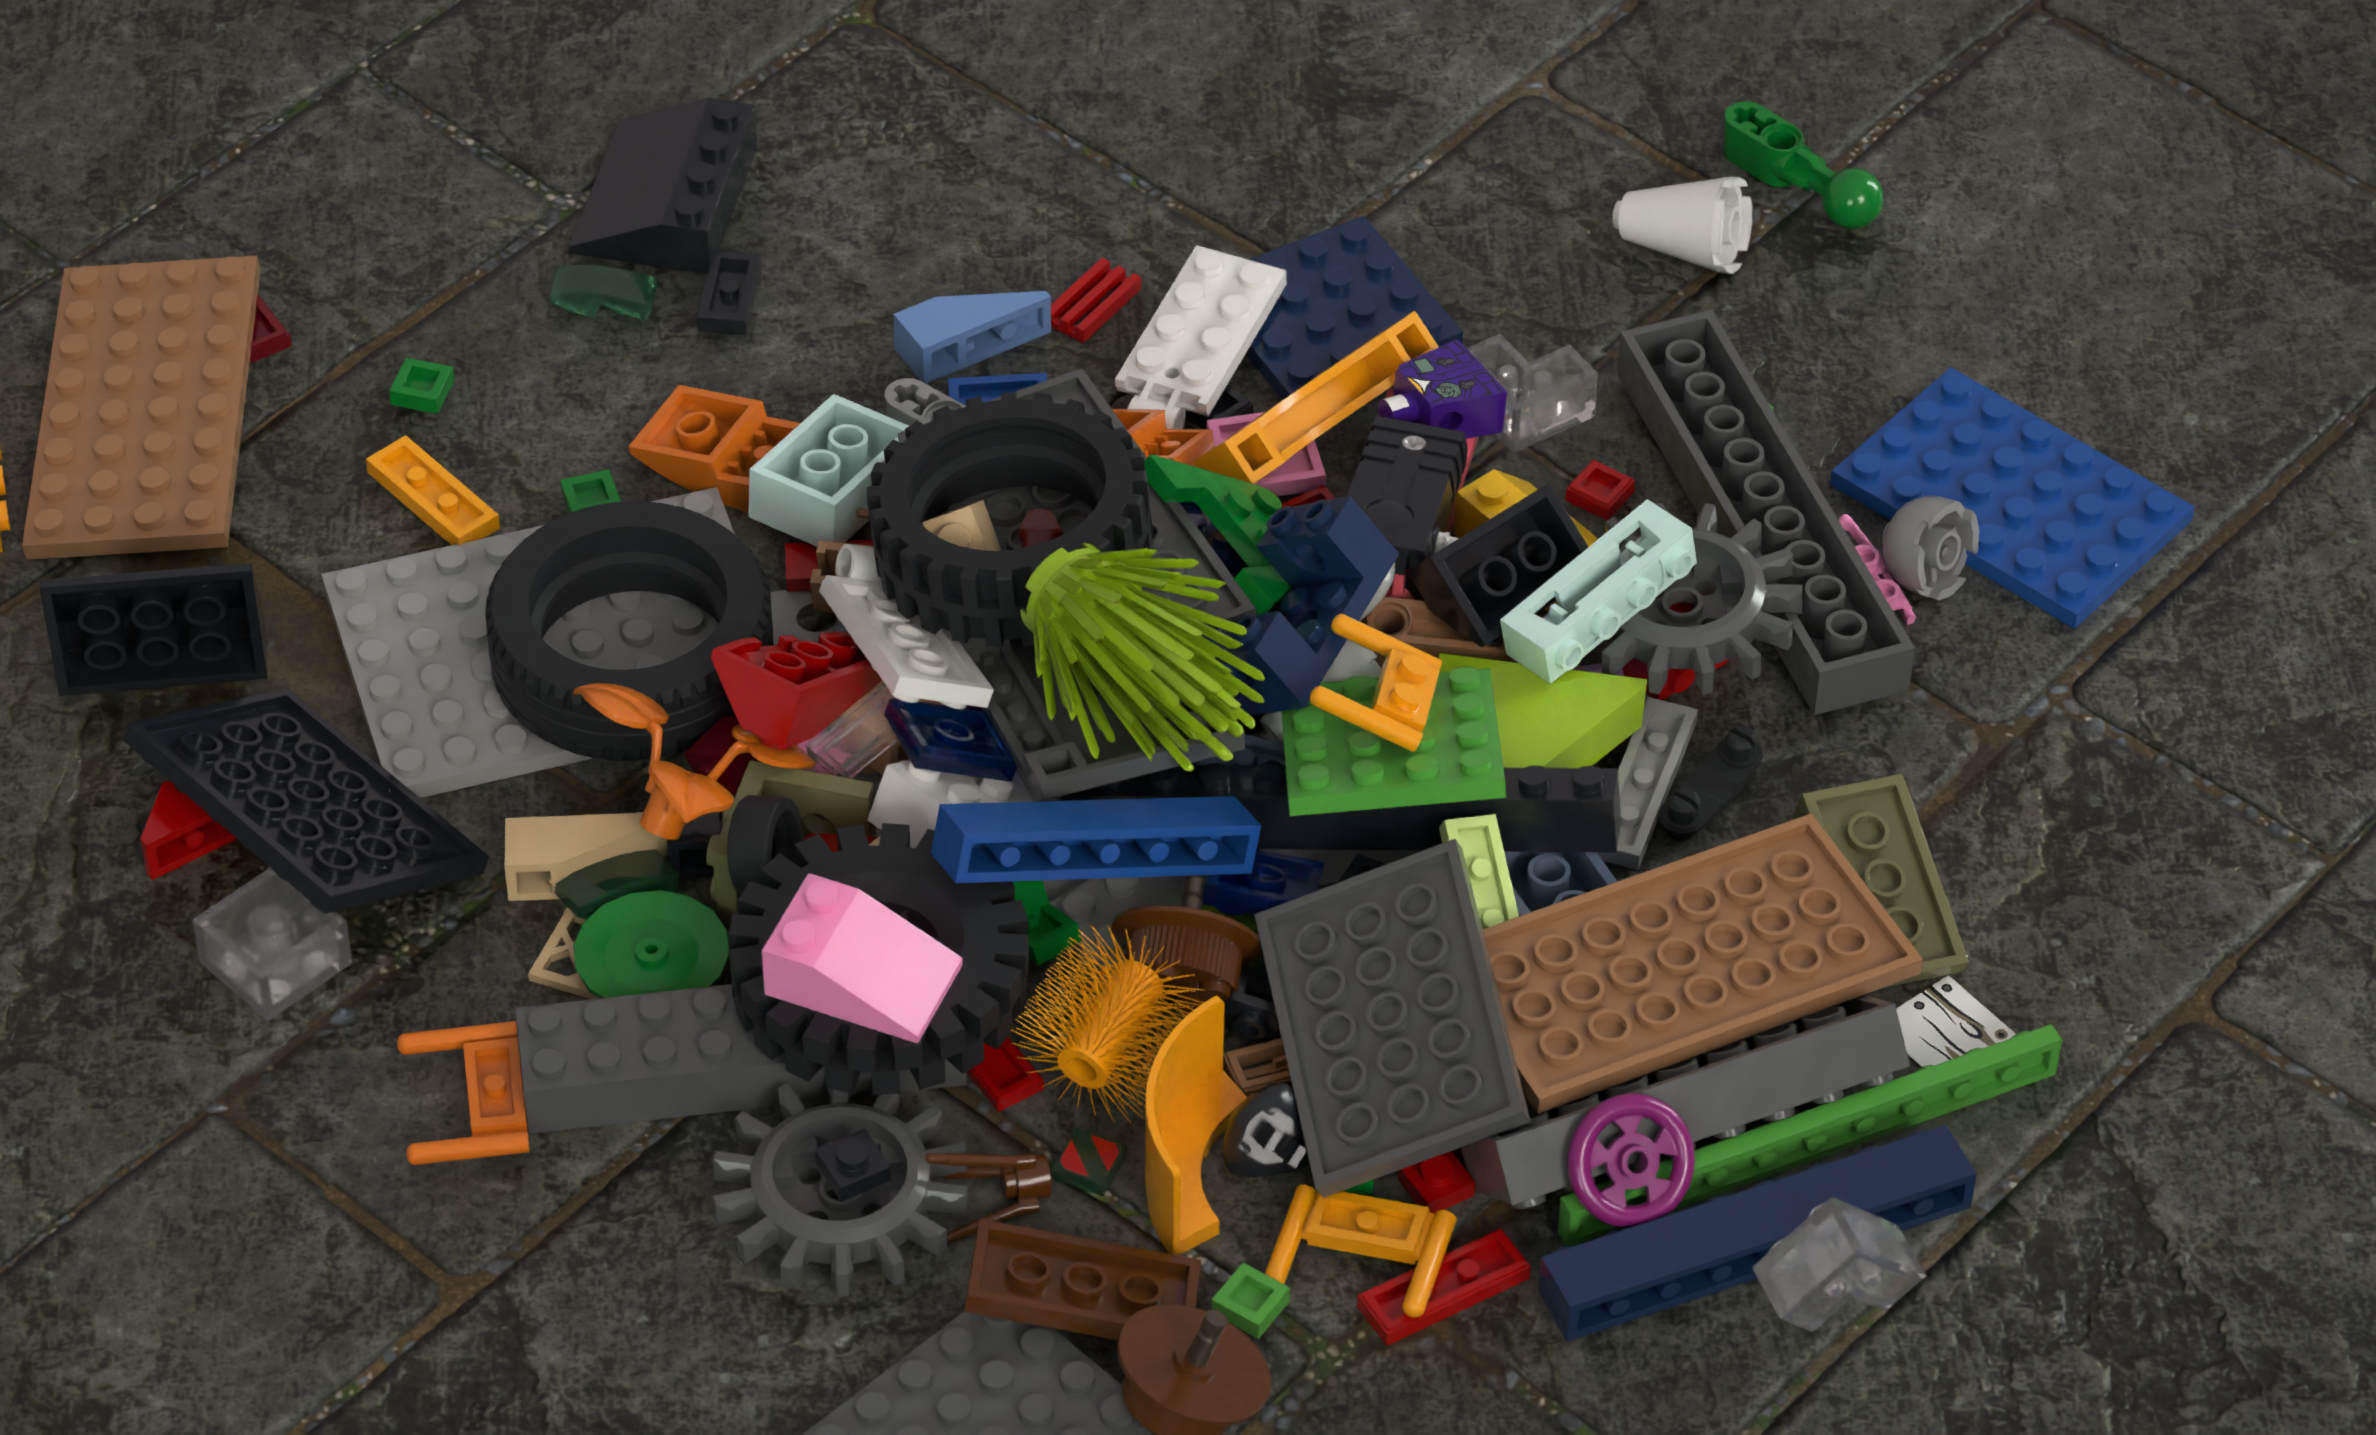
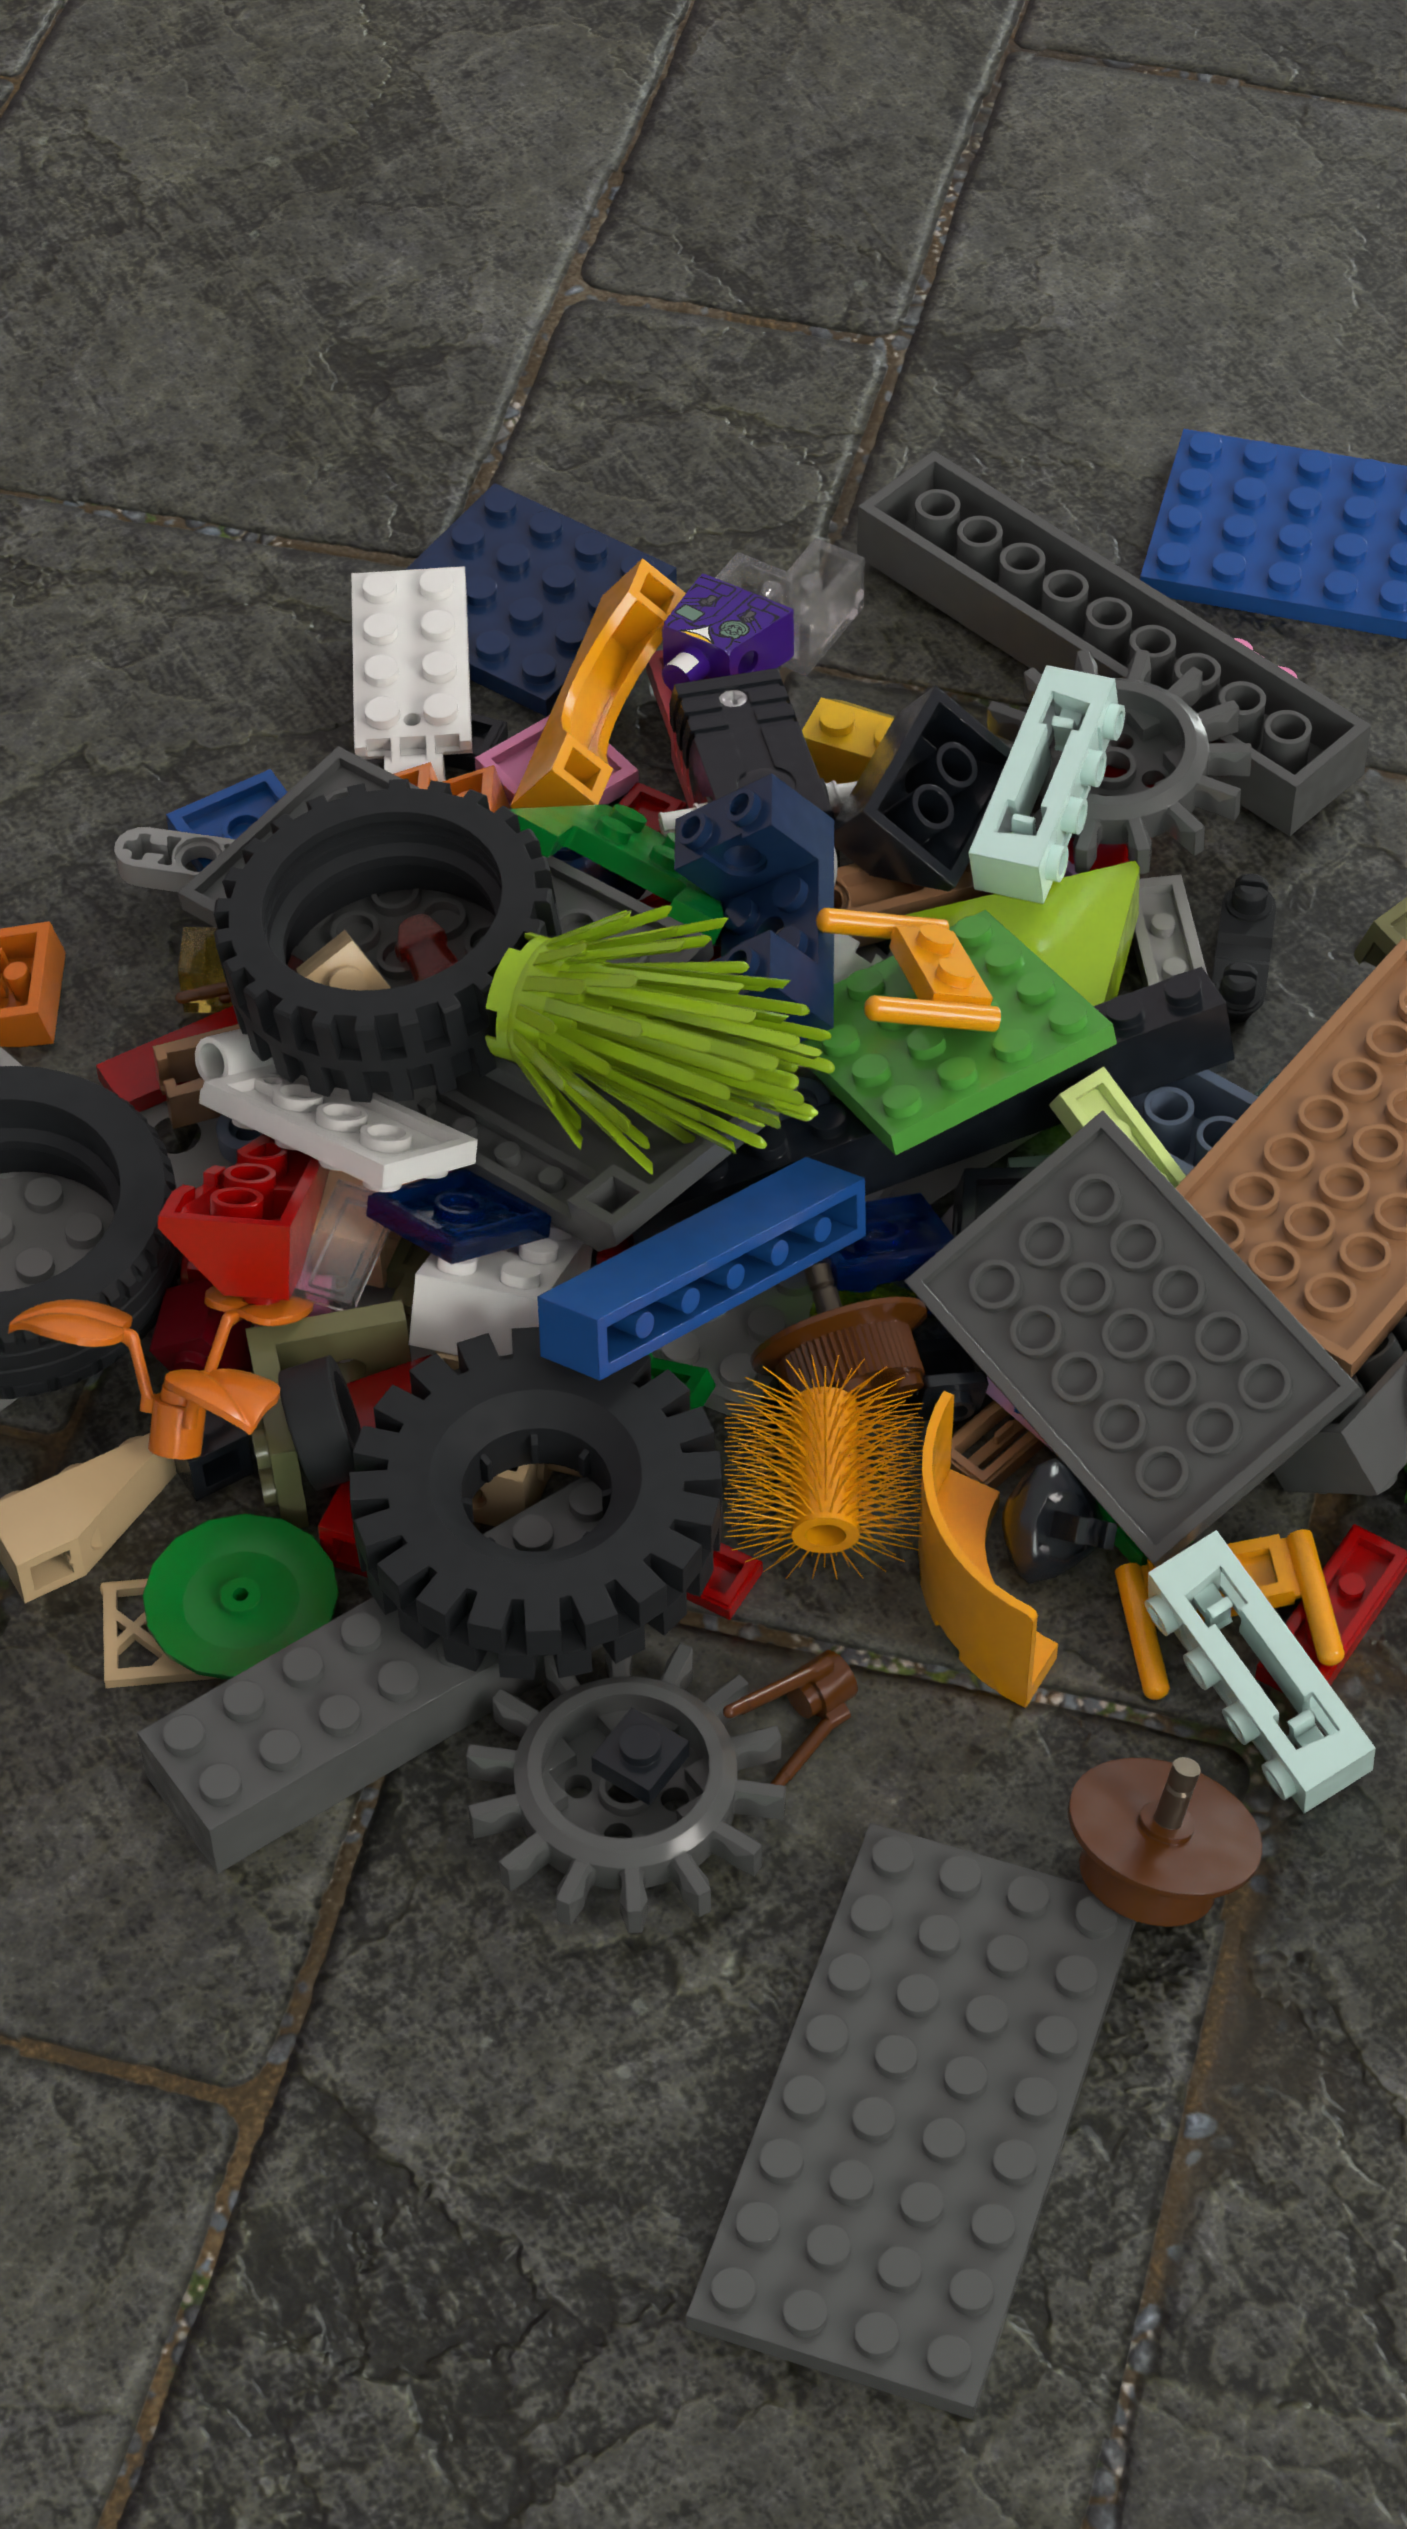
camera: 25 degrees left, 5 degrees up
(492, 1088) = (152, 1840): orange plate -> none
(615, 877) = (144, 1529): slope -> none
(821, 472) = (110, 966): light aqua brick -> none
(857, 961) = (545, 1518): bright pink slope -> none
(967, 329) = (149, 755): medium blue slope -> none
(1071, 1279) = (960, 1785): reddish brown plate -> none
(1085, 297) = (269, 644): red tile -> none
(1089, 1161) = (872, 1635): clear green tile -> none
(1251, 1300) = (1151, 1721): bright green plate -> none
(1331, 1212) = (1322, 1762): none -> light aqua brick
(1437, 1182) = (1260, 1507): red plate -> none
(1600, 490) = (915, 675): red tile -> none
(1690, 221) = (832, 372): white cone -> none
(1777, 156) = (876, 275): green beam -> none
(1929, 545) = (1292, 615): light grey cylinder -> none

